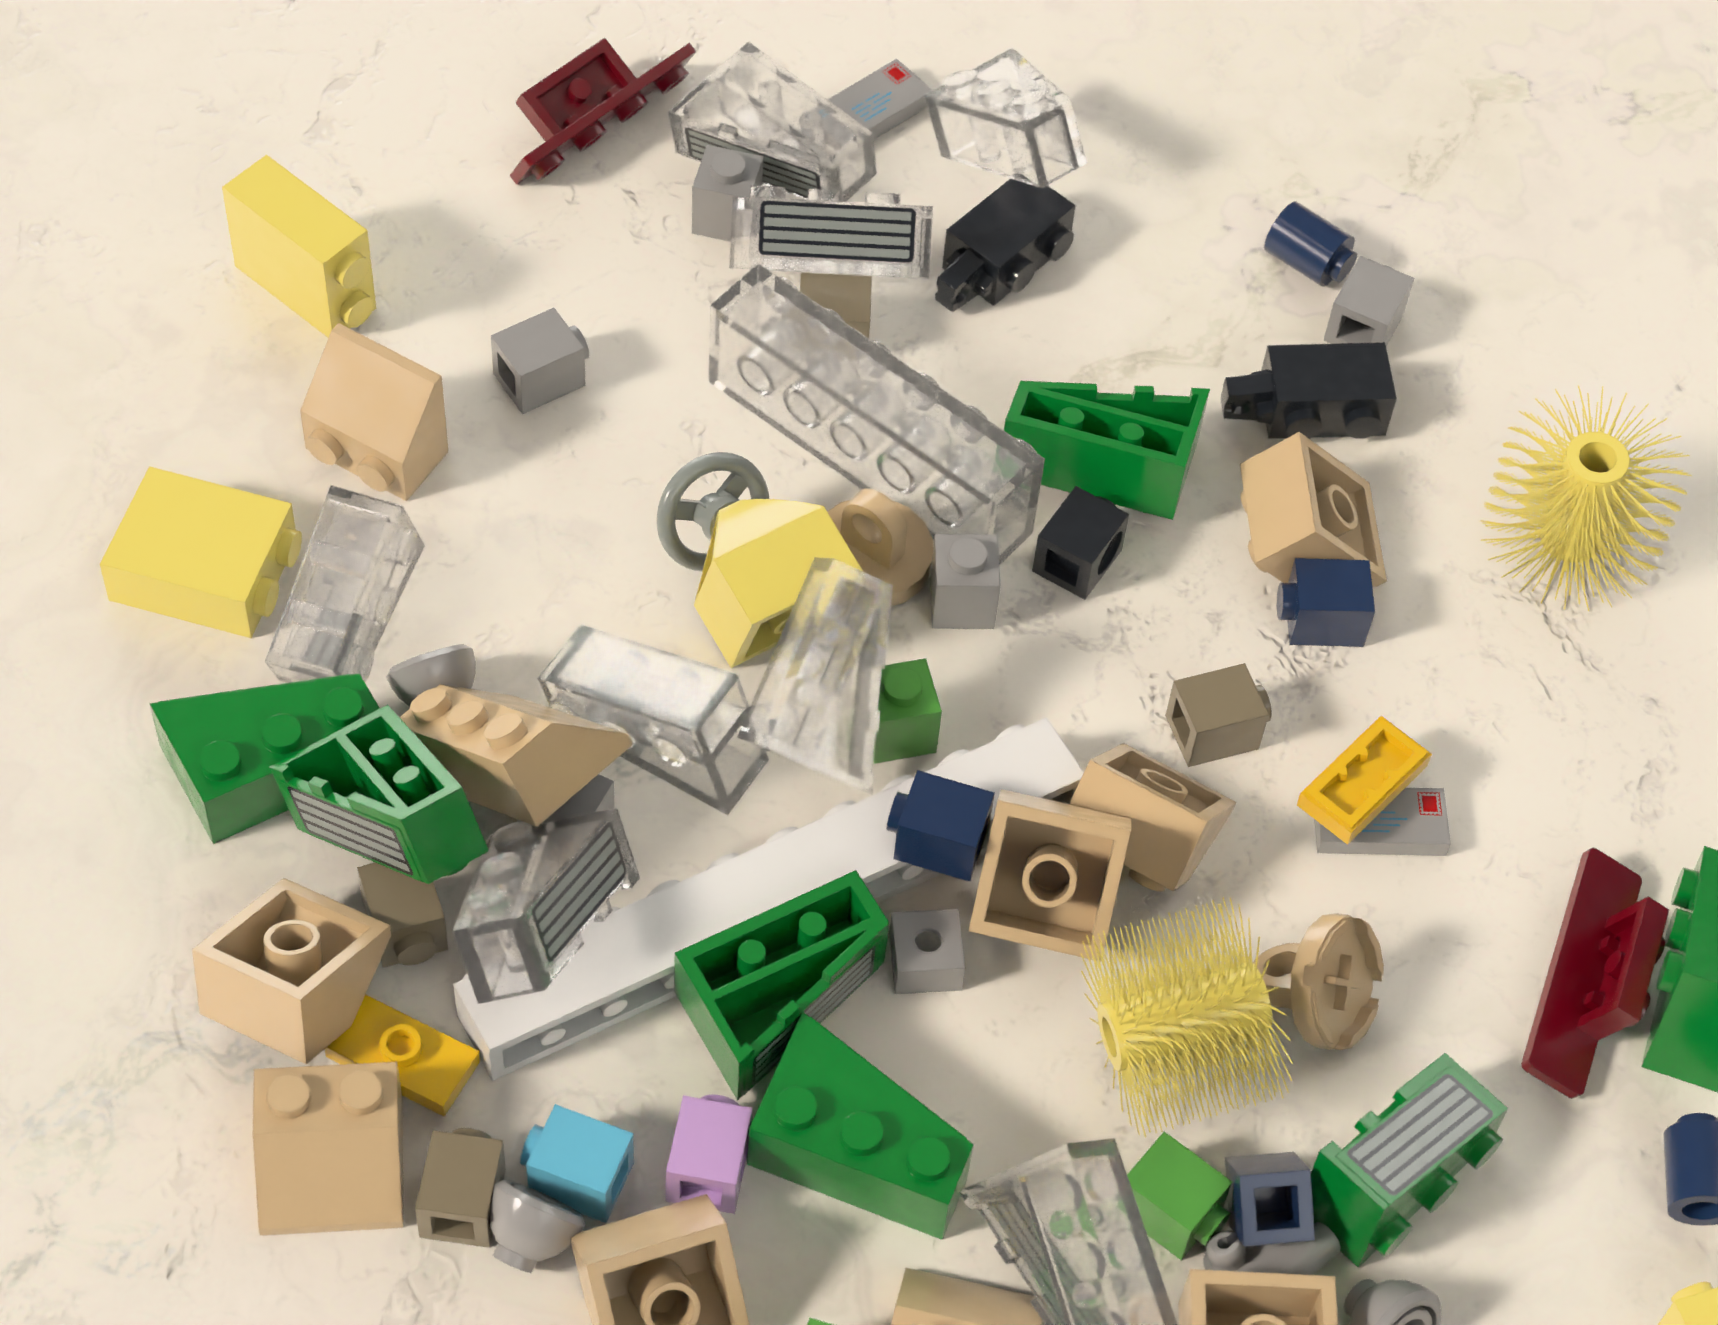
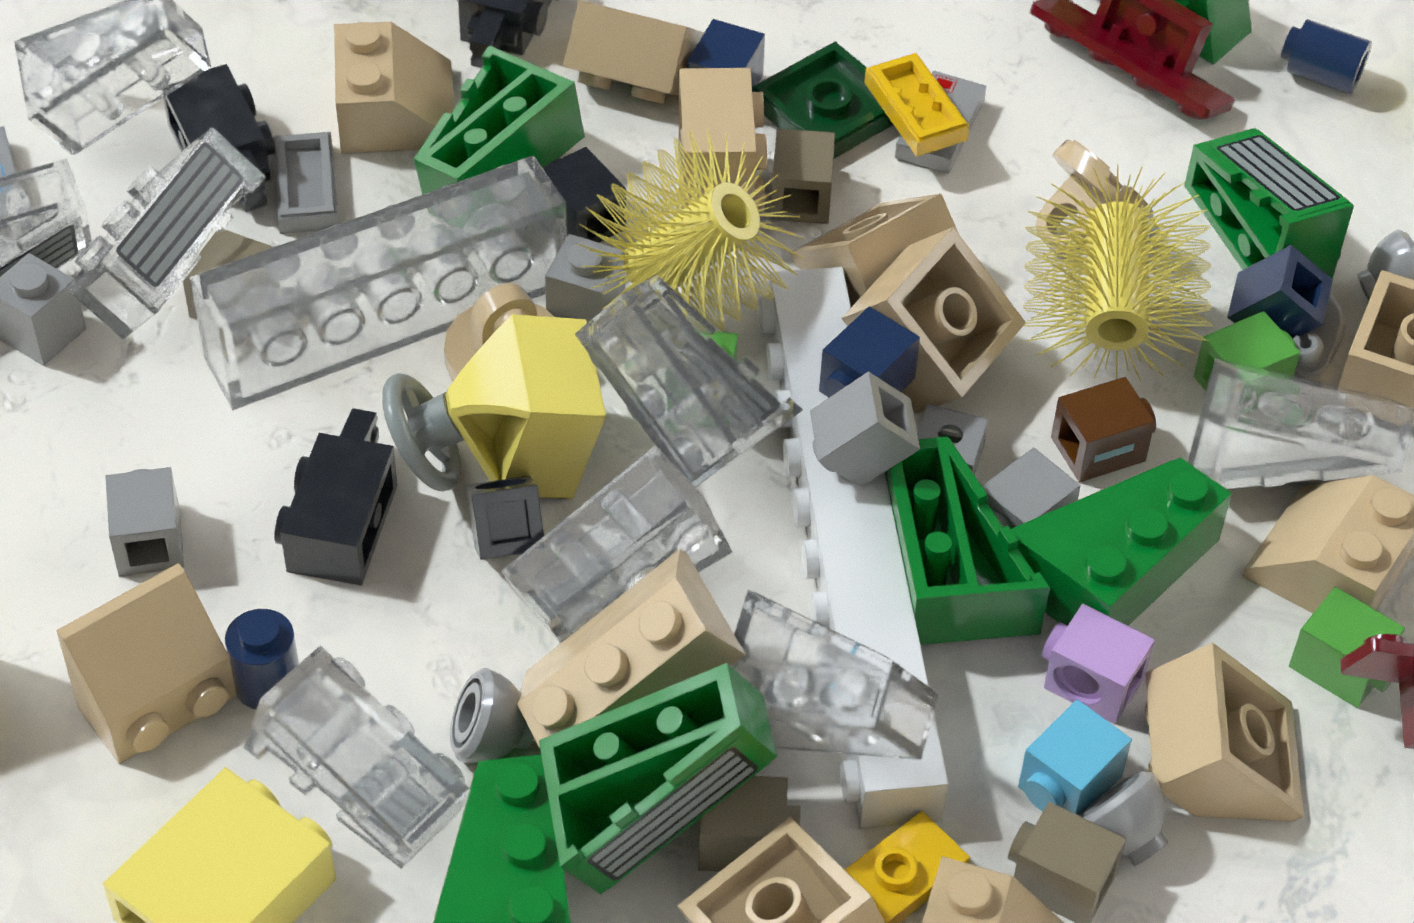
camera: 65 degrees left, 5 degrees down
(428, 491) = (260, 653): none -> dark blue brick
(617, 487) = (339, 503): none -> black hinge
(651, 607) = (504, 516): none -> black brick
(844, 840) = (864, 429): none -> light grey brick
(881, 1029) = (1029, 489): none -> light grey brick
(997, 330) = (305, 182): none -> light grey tile
(1014, 1081) = (1103, 429): none -> reddish brown brick
(1042, 628) = (695, 235): none -> light yellow piece
(1137, 334) = (387, 88): none -> tan slope
(1182, 619) = (722, 104): none -> tan brick
(1340, 698) = (825, 96): none -> dark green tile

